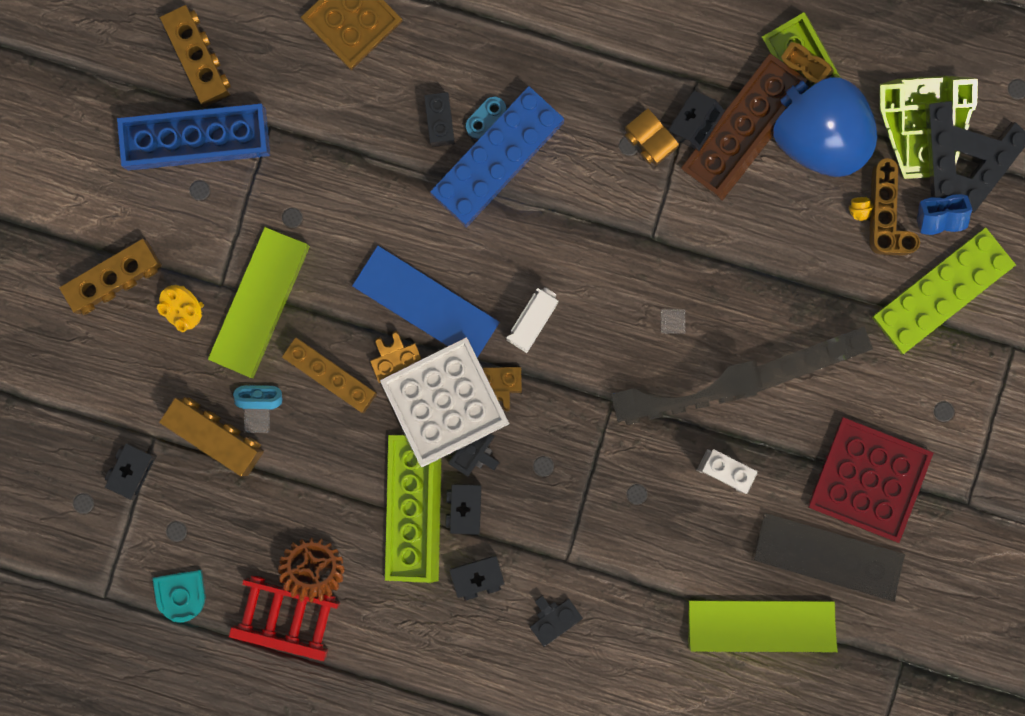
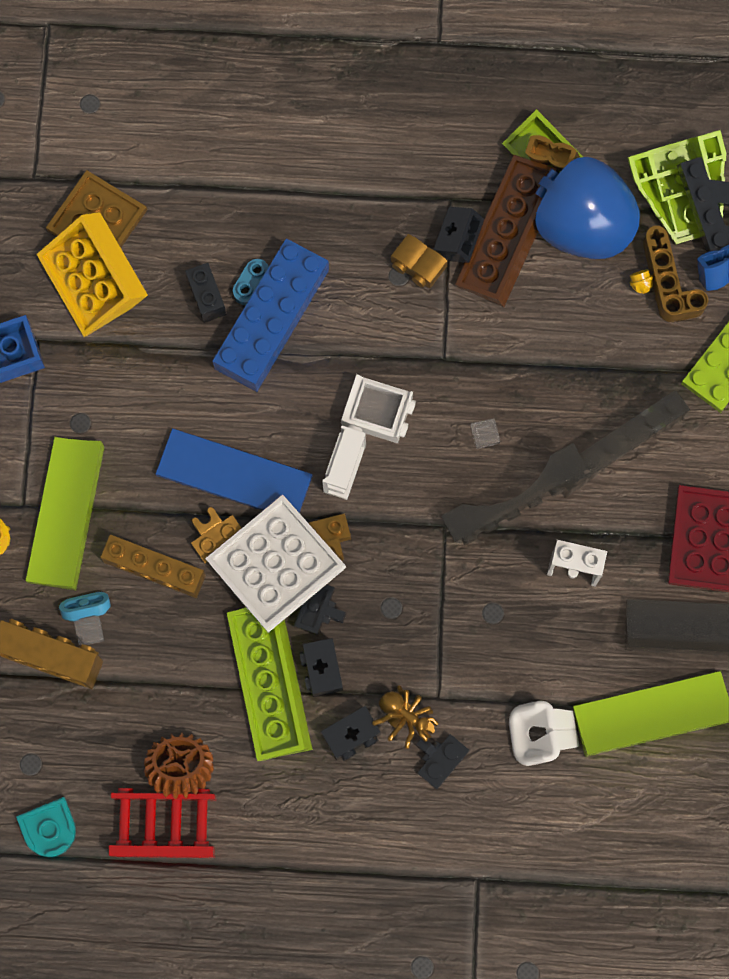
camera: 15 degrees left, 10 degrees down
(334, 75) = (91, 273): none -> yellow slope
(528, 569) = (402, 712): none -> pearl gold animal
(577, 274) = (378, 409): none -> window
(670, 615) = (560, 732): none -> white piece

